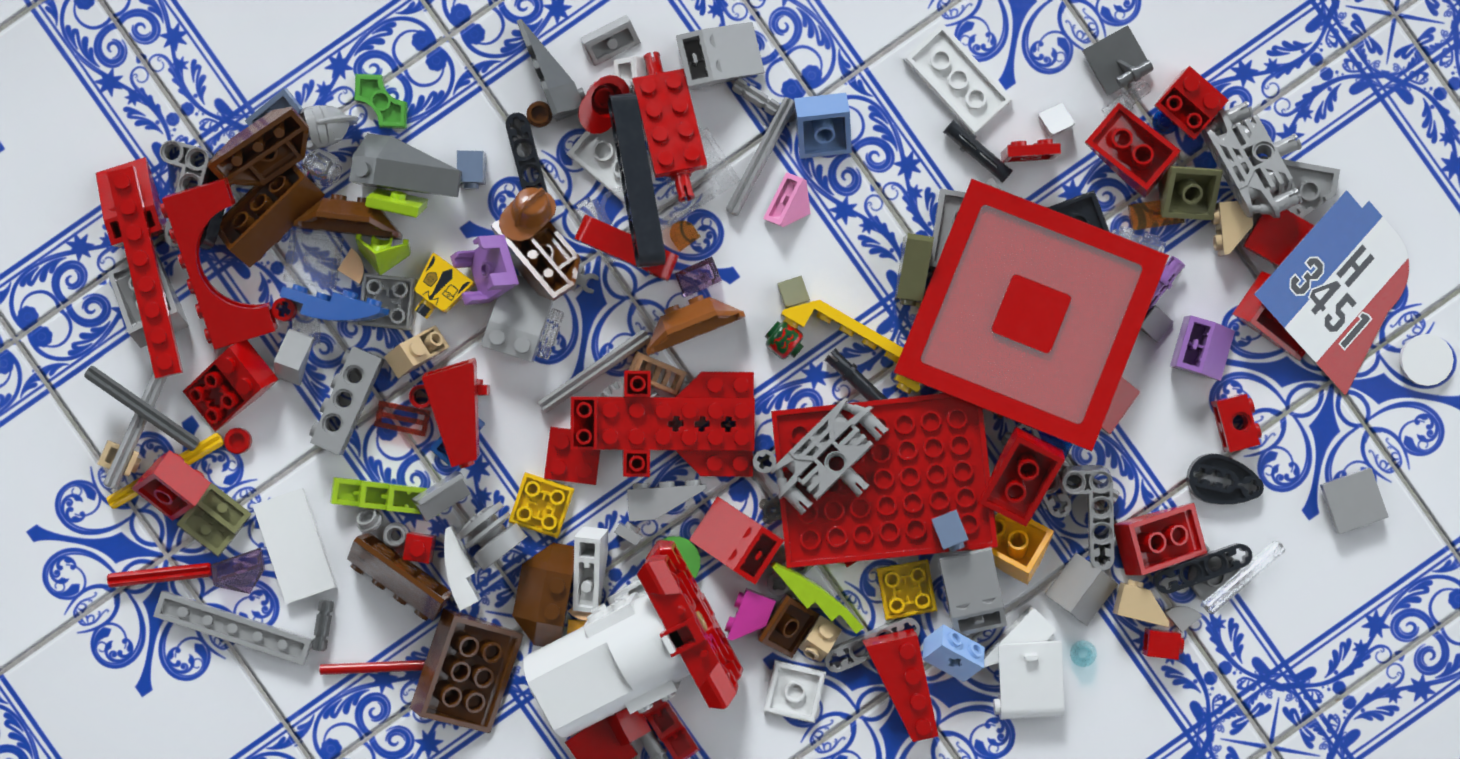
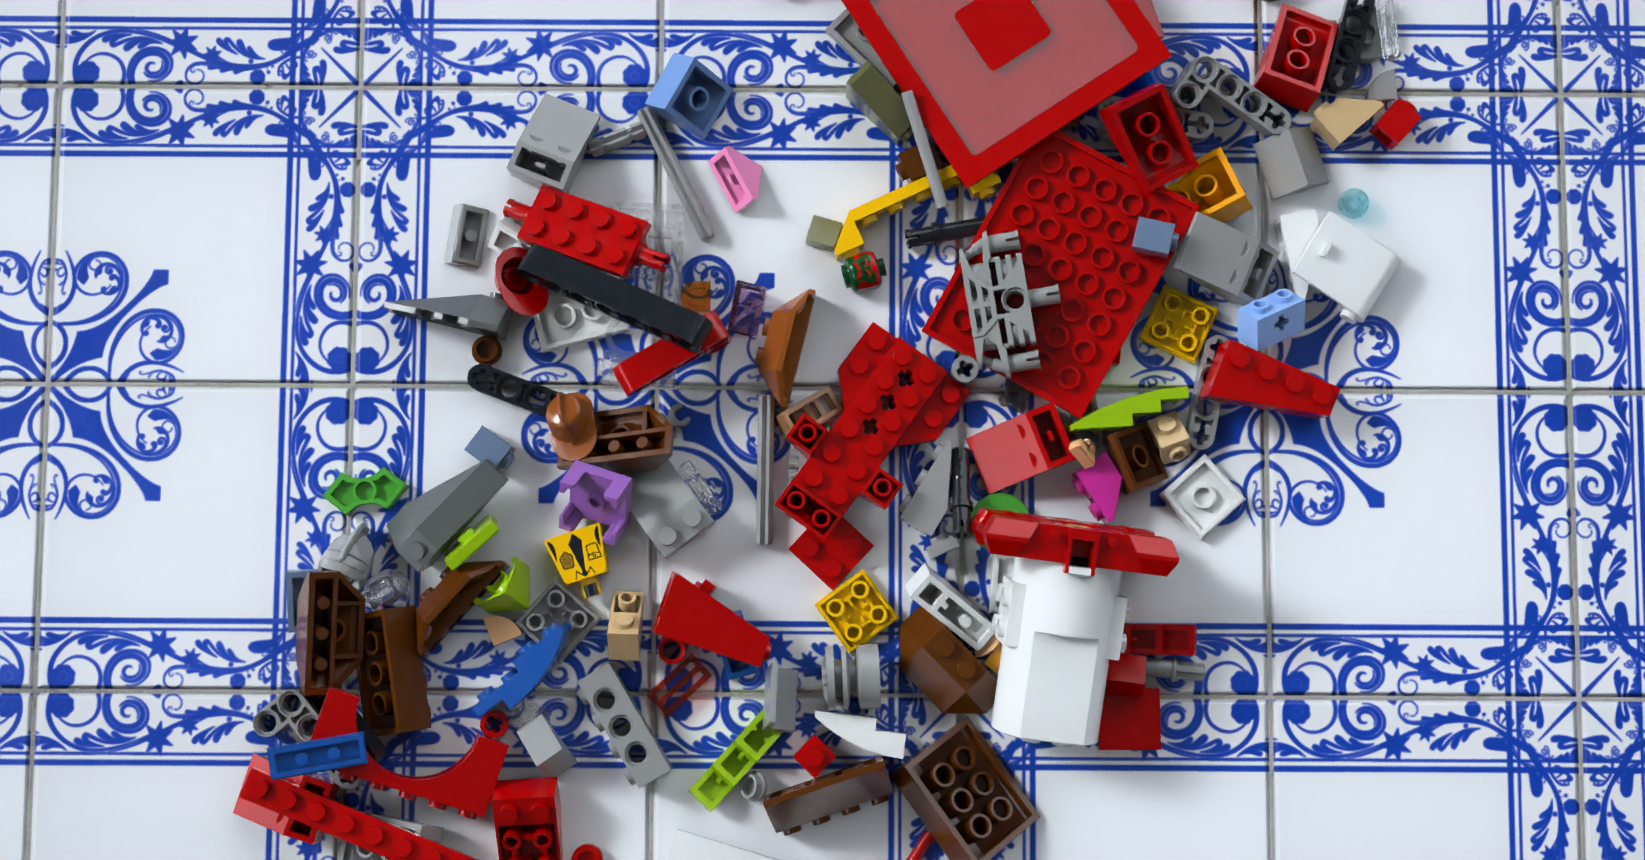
camera: 60 degrees left, 5 degrees down
(171, 206) = (317, 755): none -> blue tile
(313, 259) = (467, 662): clear plate -> none
(387, 535) = (779, 778): light grey plate -> none
(666, 526) = (961, 504): none -> black pin
(764, 586) = (1083, 451): none -> light nougat tile
(890, 324) = (911, 166): none -> reddish brown brick
(901, 321) = (924, 149): none -> light grey bar

